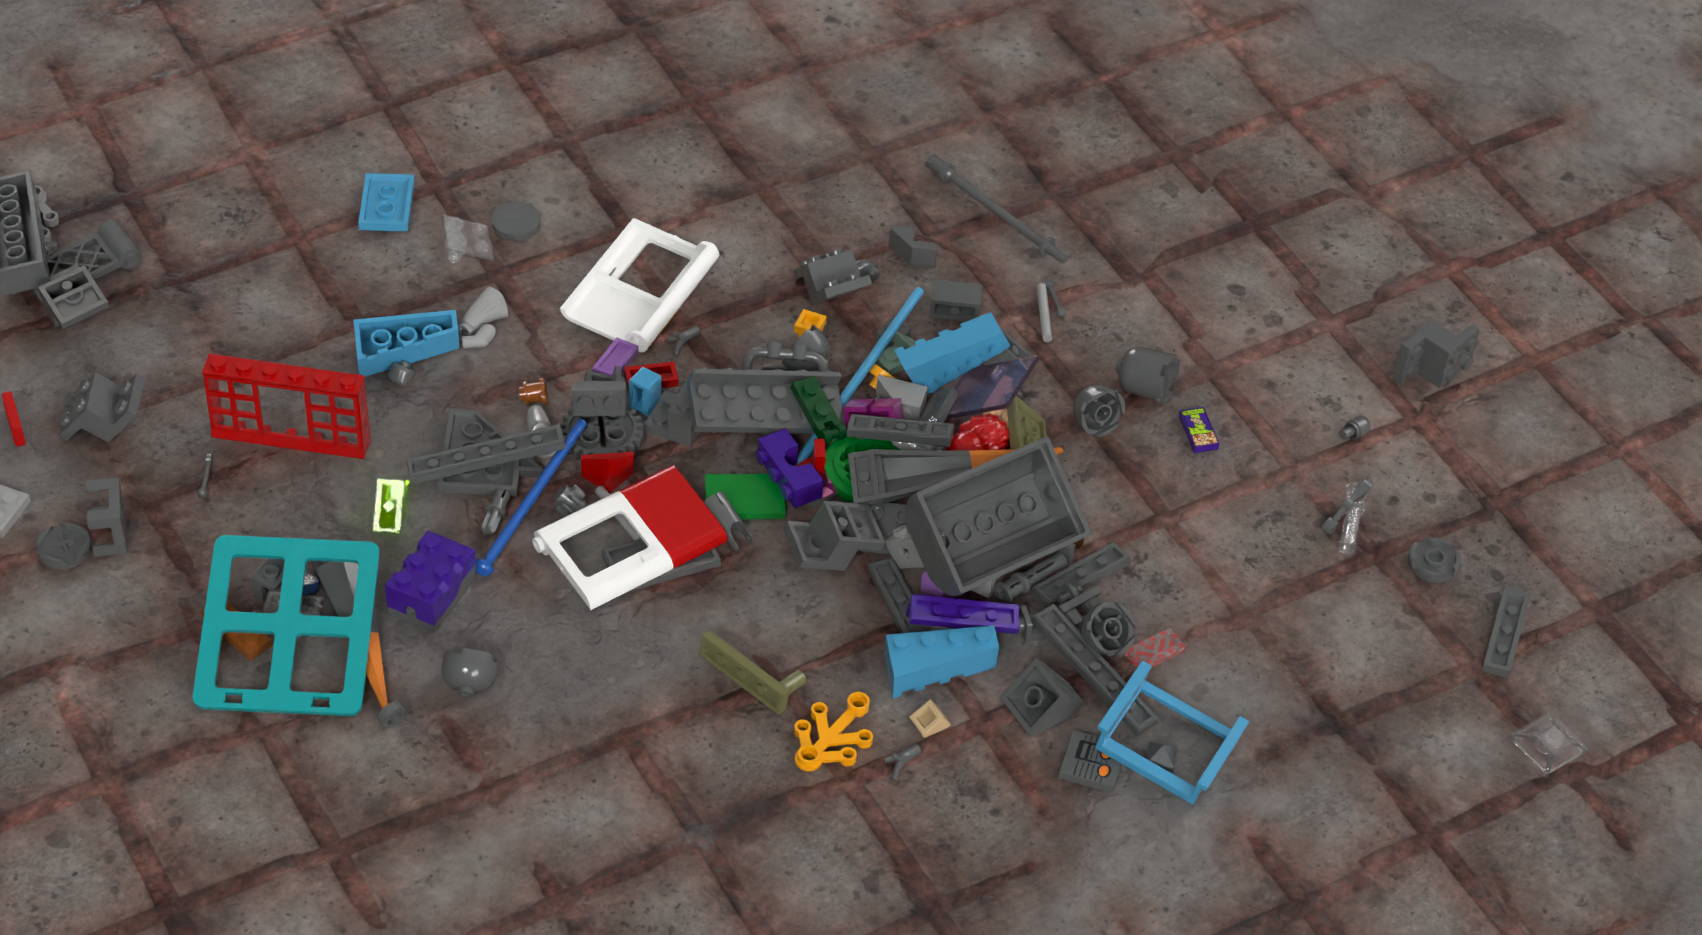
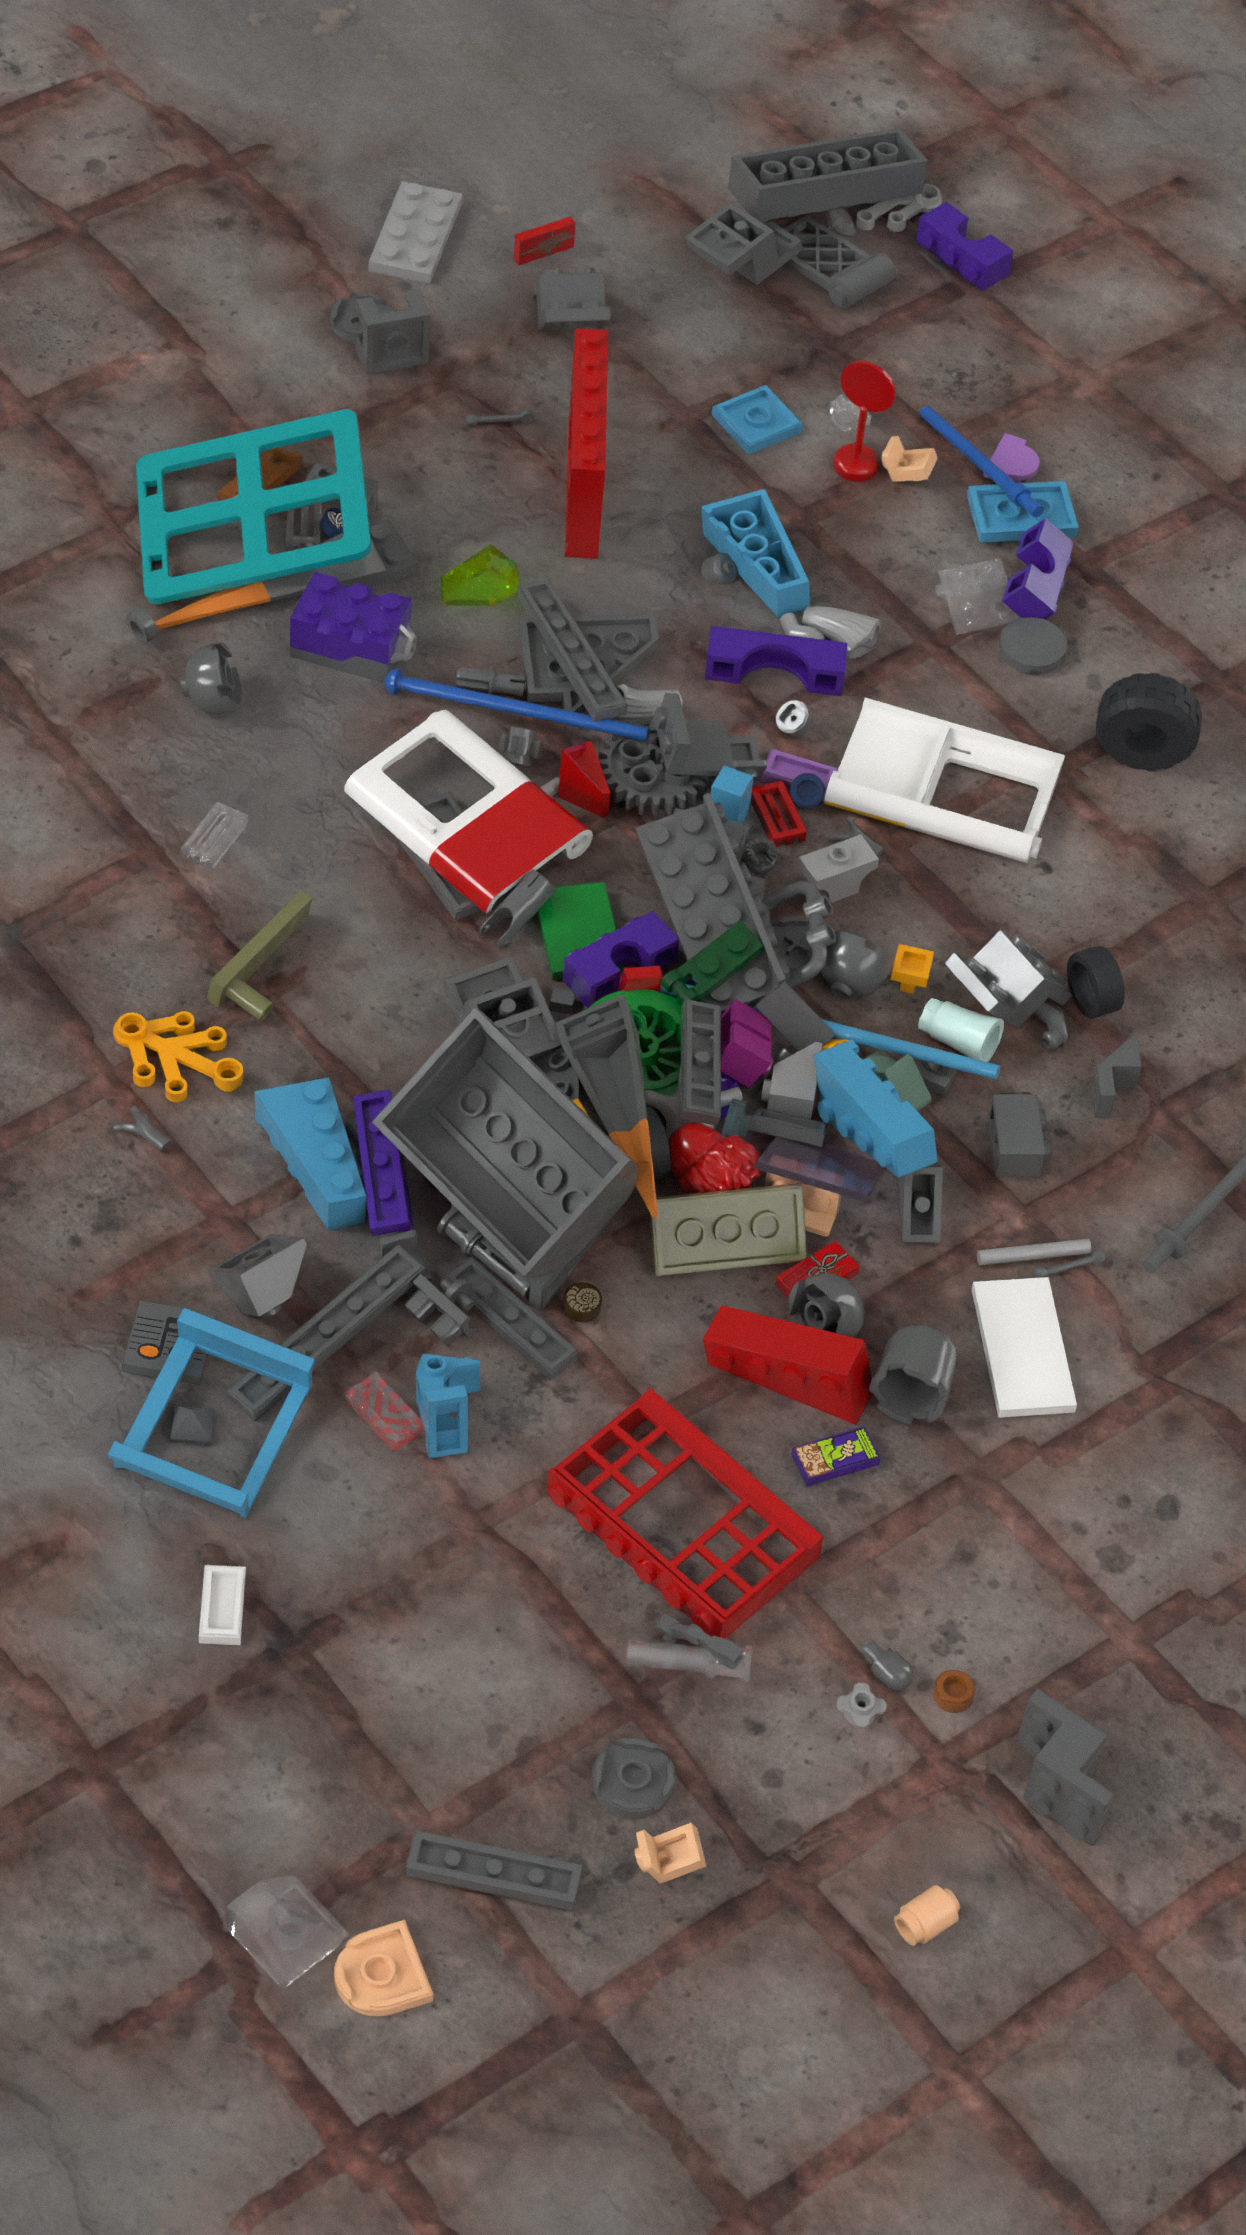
camera: 80 degrees right, 5 degrees up
(83, 192) = (979, 261): none -> dark purple arch
(248, 329) = (757, 419): none -> dark azure tile
(256, 276) = (845, 414): none -> clear tile
(297, 231) = (872, 391): none -> red piece
(324, 250) = (907, 464): none -> light nougat bracket
(333, 198) = (1015, 458): none -> medium lavender piece
(380, 194) = (1015, 492): none -> blue bar
(447, 196) = (1037, 587): none -> dark purple arch
(516, 331) = (814, 661): none -> dark purple arch
(534, 392) = (707, 695): dark orange brick -> none
(565, 352) = (794, 718): none -> tile
(615, 696) = (202, 854): none -> clear tile
(621, 166) = (1148, 721): none -> black tyre
(637, 354) = (807, 791): none -> dark blue tile
(718, 345) = (839, 867): none -> light grey brick
(807, 513) = (562, 1001): none -> dark grey piece
(836, 224) = (1095, 982): none -> black tyre
(858, 384) = (794, 1017): none -> dark grey tile
(867, 309) = (962, 1029): none -> light aqua plant
(929, 719) = (220, 1159): tan slope -> none
(1056, 416) = (828, 1260): none -> red tile
(1108, 628) = (387, 1333): dark grey cylinder -> none
(1117, 329) = (1023, 1347): none -> white tile
(1134, 432) = (793, 1360): none -> red wedge
(1162, 613) = (443, 1389): none -> dark azure tile
(1285, 463) = (644, 1558): none -> red window
(1308, 752) = (222, 1605): none -> white tile
(1370, 404) = (954, 1691): none -> dark orange tile
(1383, 446) = (861, 1716): none -> light grey plate
(1492, 544) = (670, 1853): none -> light nougat bracket
(1528, 436) = (927, 1915): none -> light nougat brick
(1574, 697) = (382, 1972): none -> light nougat tile

